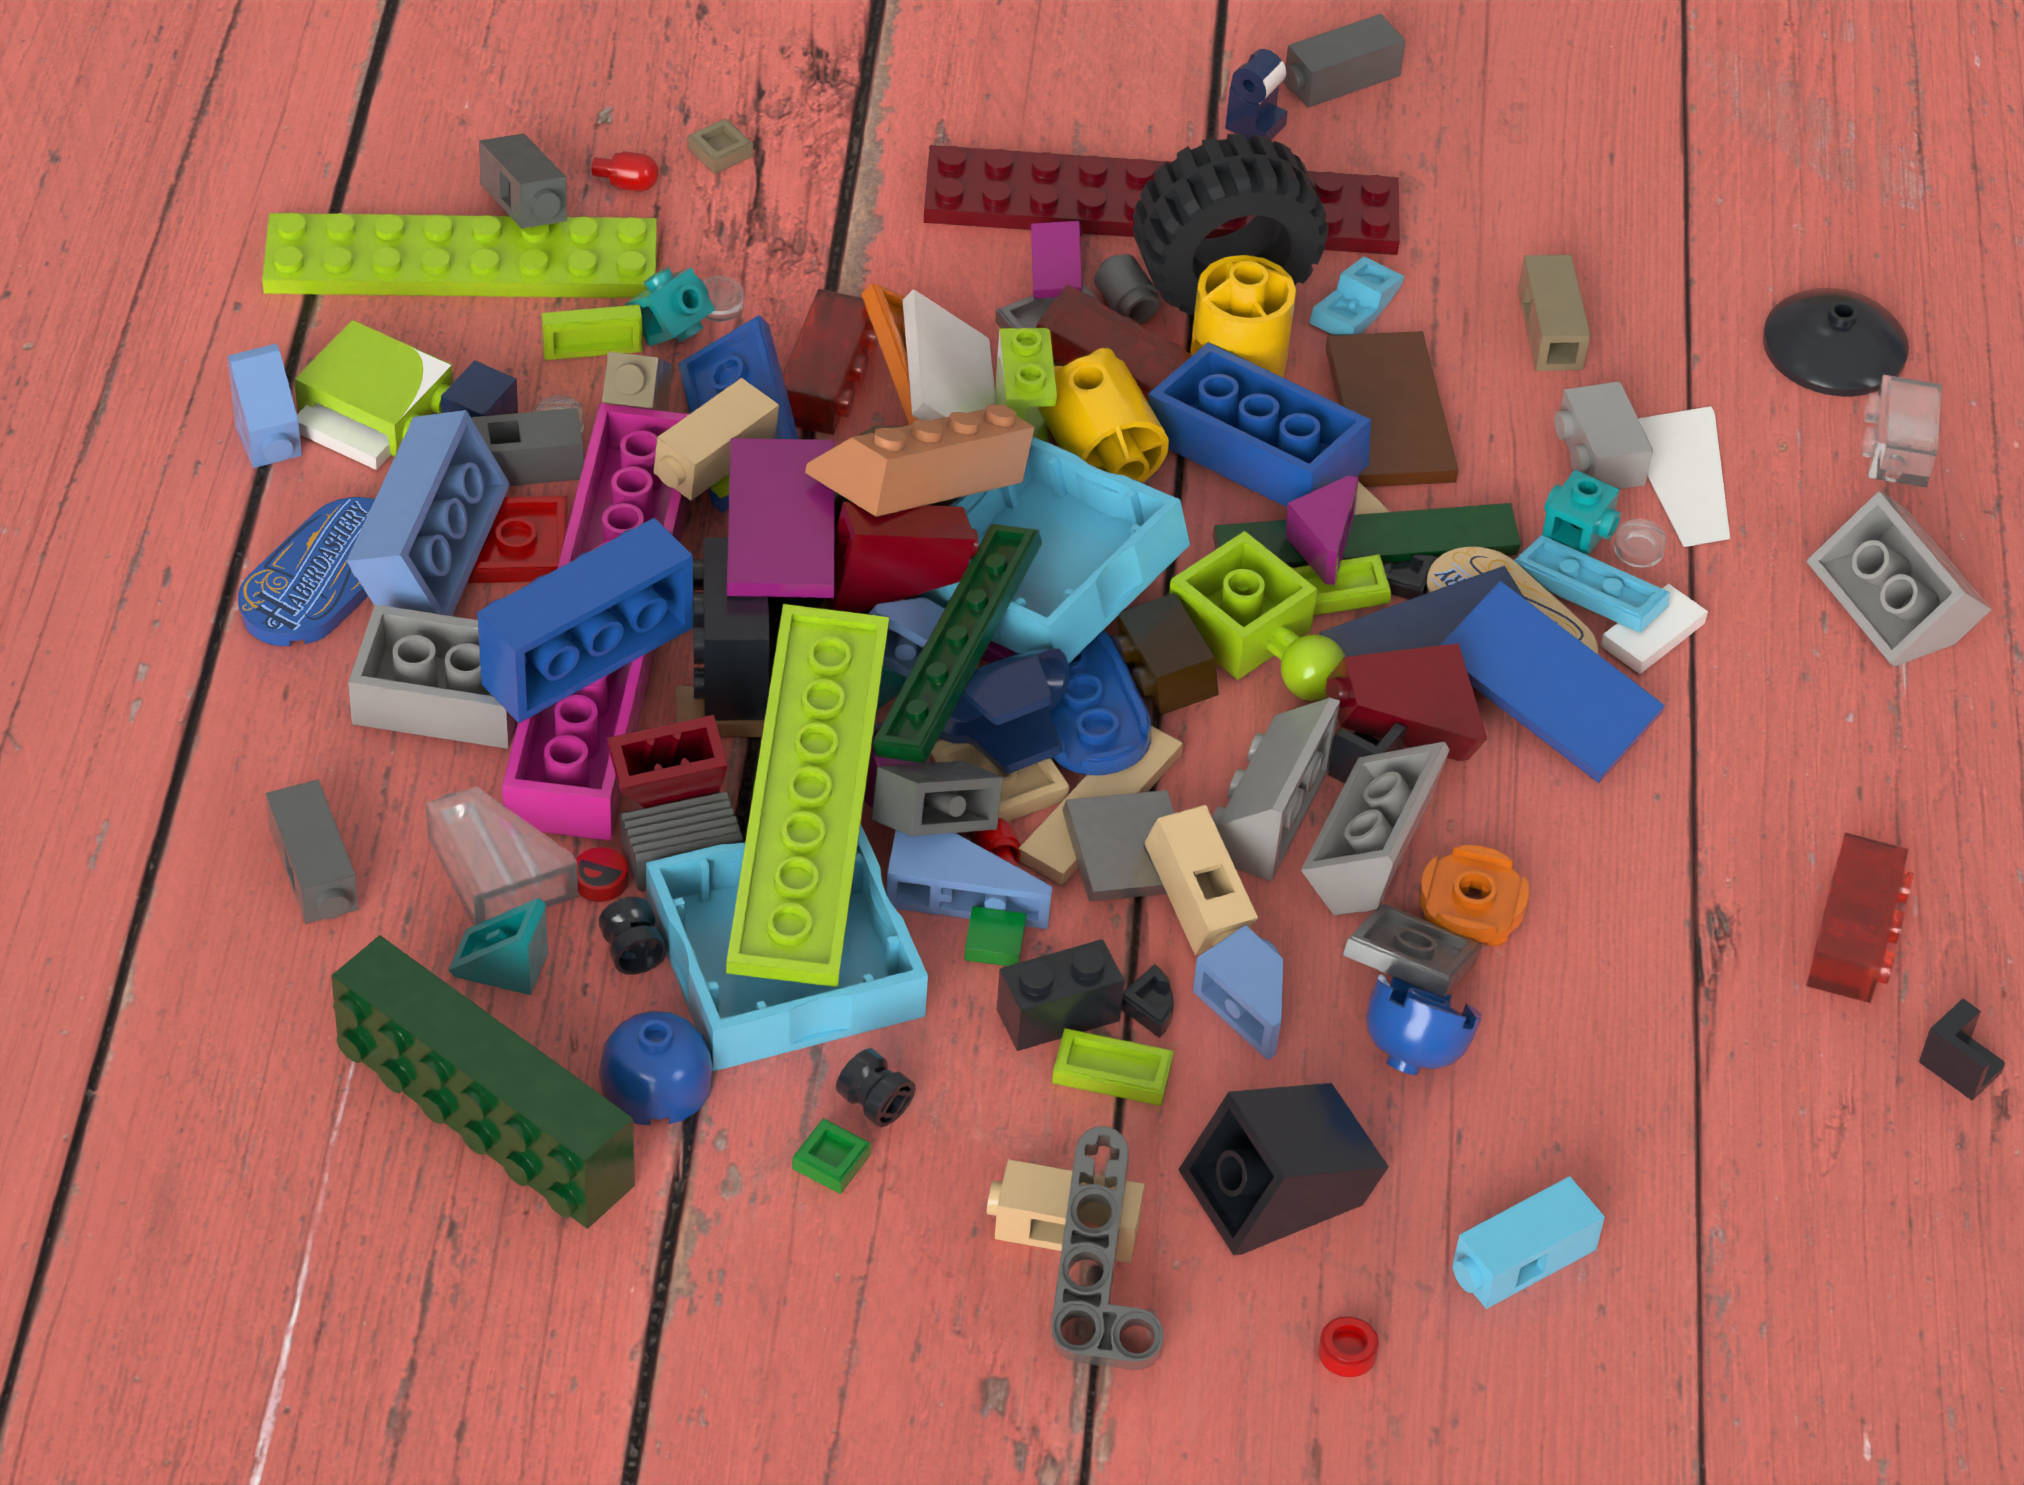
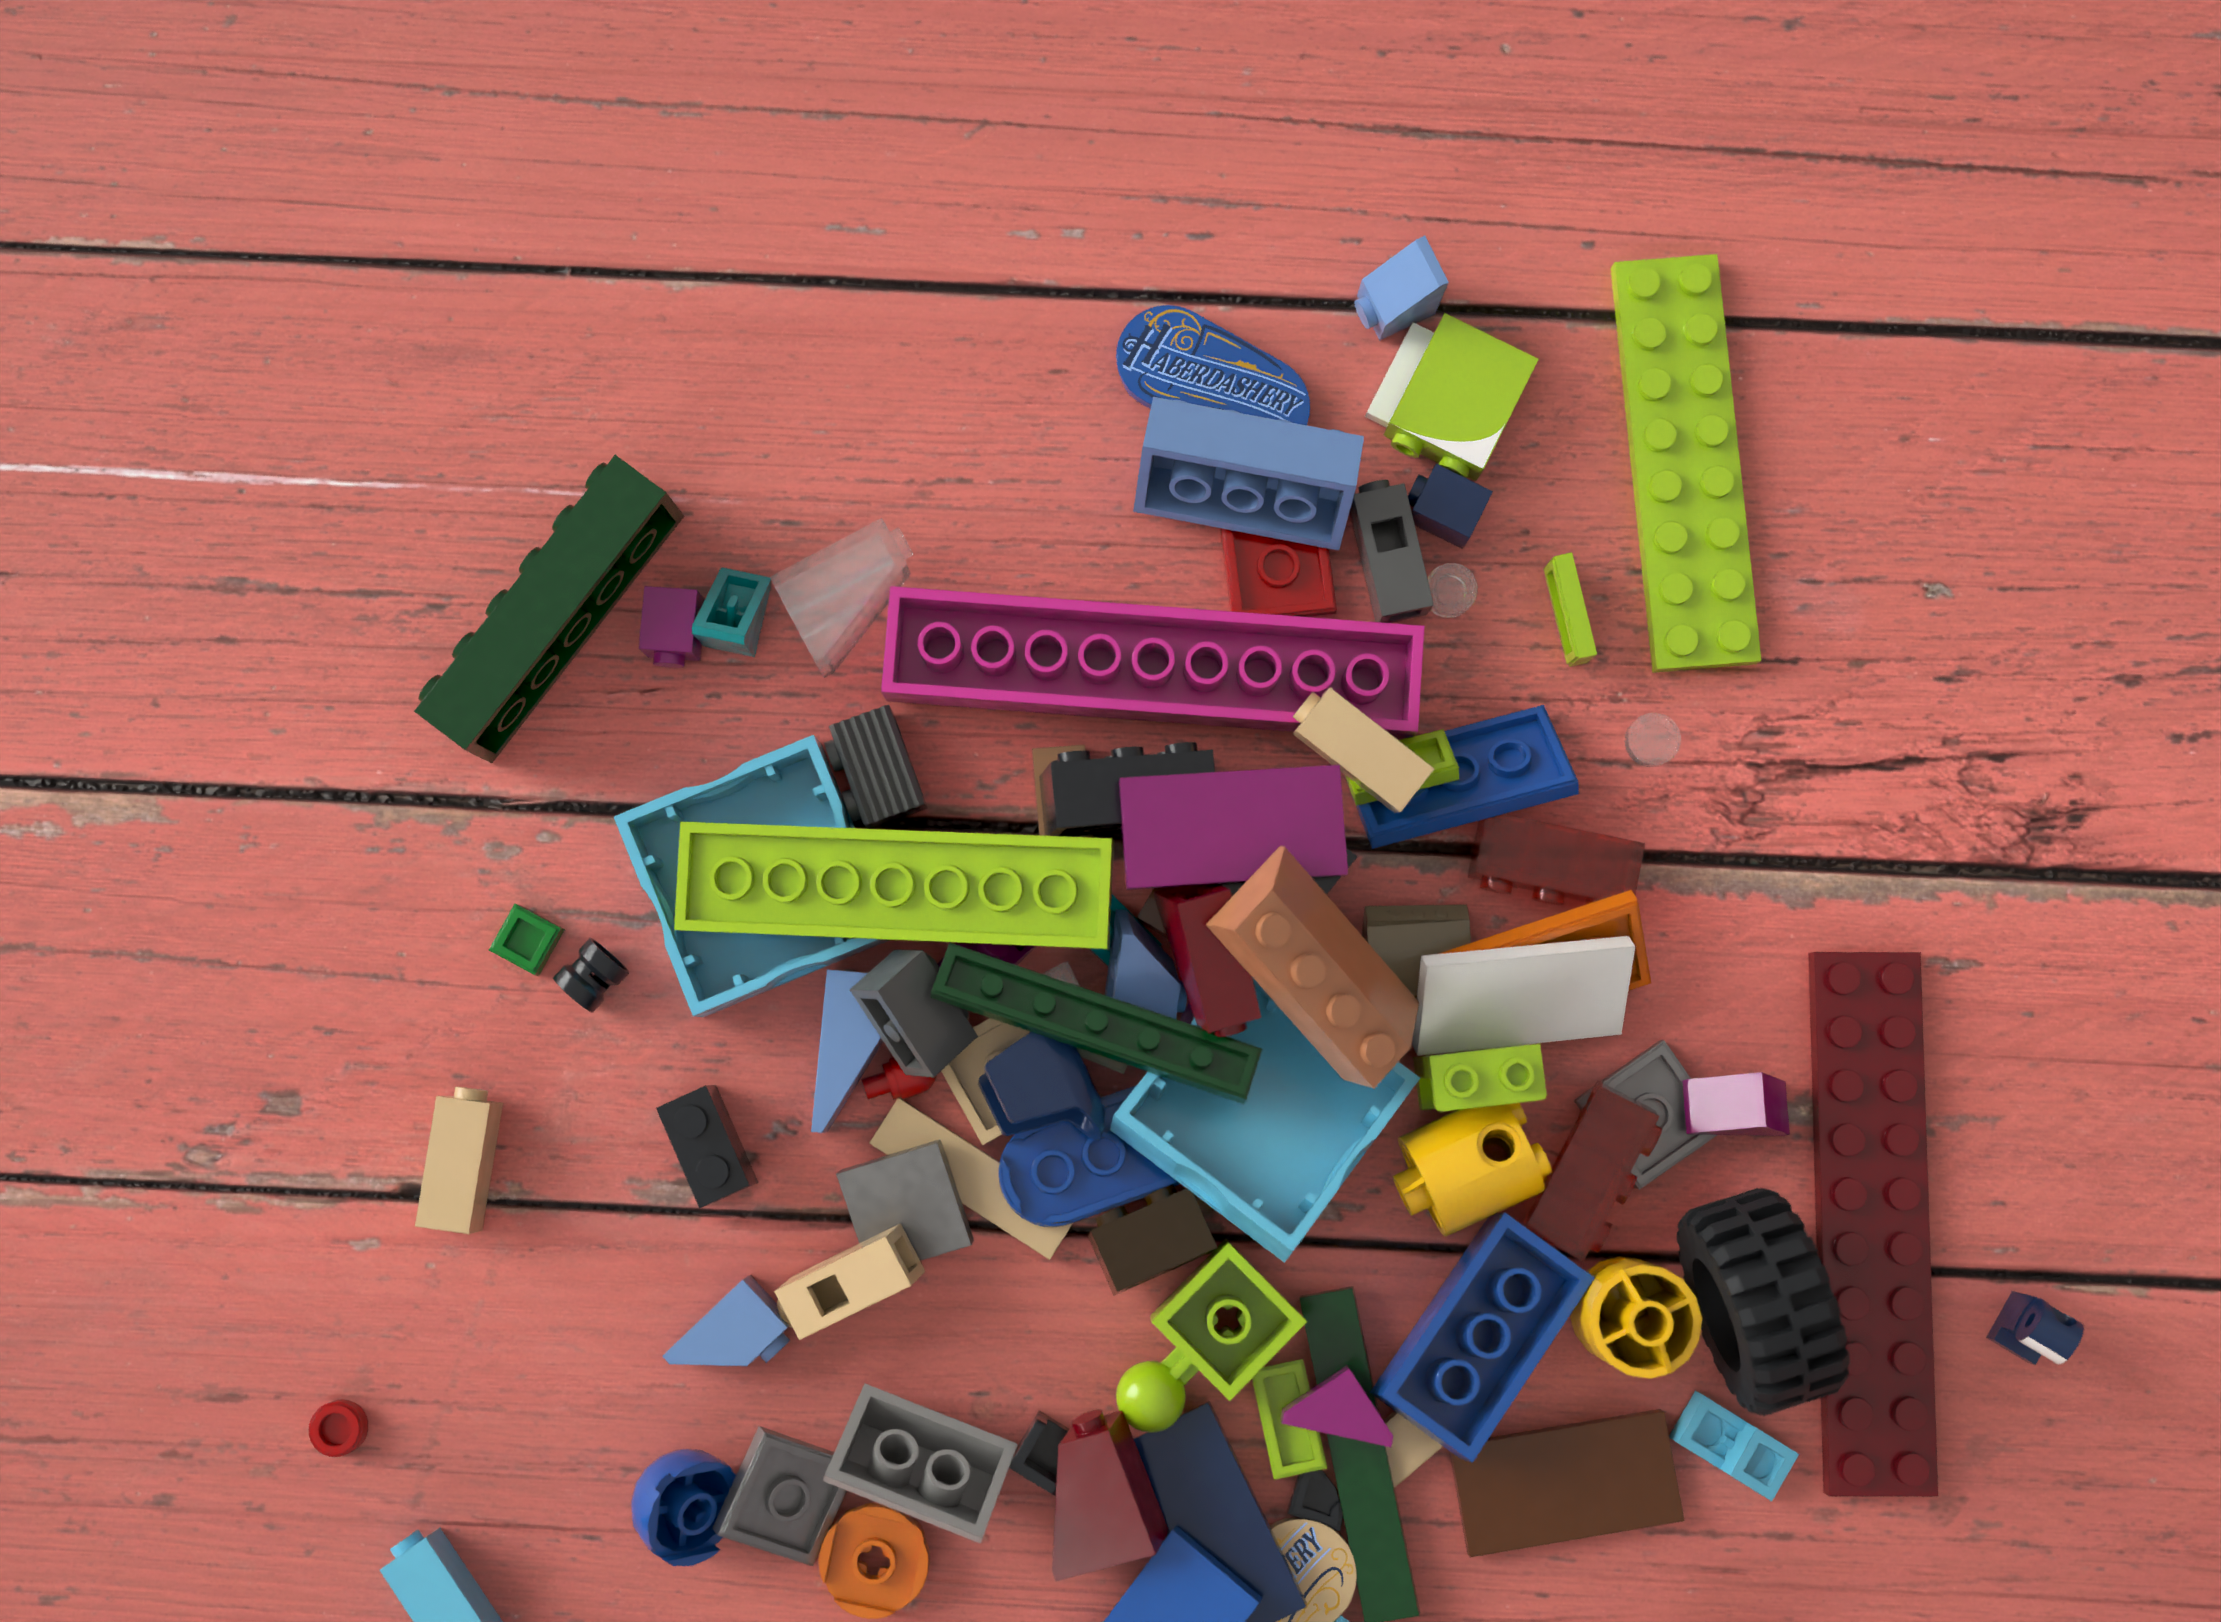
camera: 90 degrees right, 35 degrees up
(312, 851) = (835, 422): dark grey brick -> none
(425, 679) = (1055, 512): light grey brick -> none
(513, 994) = (668, 625): none -> magenta brick
(523, 180) = (1782, 510): dark grey brick -> none
(585, 619) = (1065, 638): blue brick -> none
(601, 874) = (842, 694): red tile -> none
(627, 171) = (1835, 622): red cylinder -> none
(630, 927) = (767, 725): black wheel -> none
(637, 381) = (1466, 662): dark tan brick -> none
(656, 1067) = (608, 768): blue cylinder -> none
(669, 762) = (918, 743): dark red slope -> none
(672, 305) = (1612, 689): teal brick -> none
(720, 146) = (1897, 720): dark tan tile -> none
(995, 936) = (790, 1079): green tile -> none
(1099, 1246) = (326, 1187): dark grey beam -> none
(1112, 1067) = (645, 1200): lime tile -> none
(1127, 288) = (1708, 1180): dark grey brick -> none
(1150, 1001) = (727, 1234): black tile -> none
(1277, 787) = (978, 1355): light grey slope -> none
(1280, 1163) = (517, 1369): black slope -> none
(1344, 60) = (2131, 1432): dark grey brick -> none

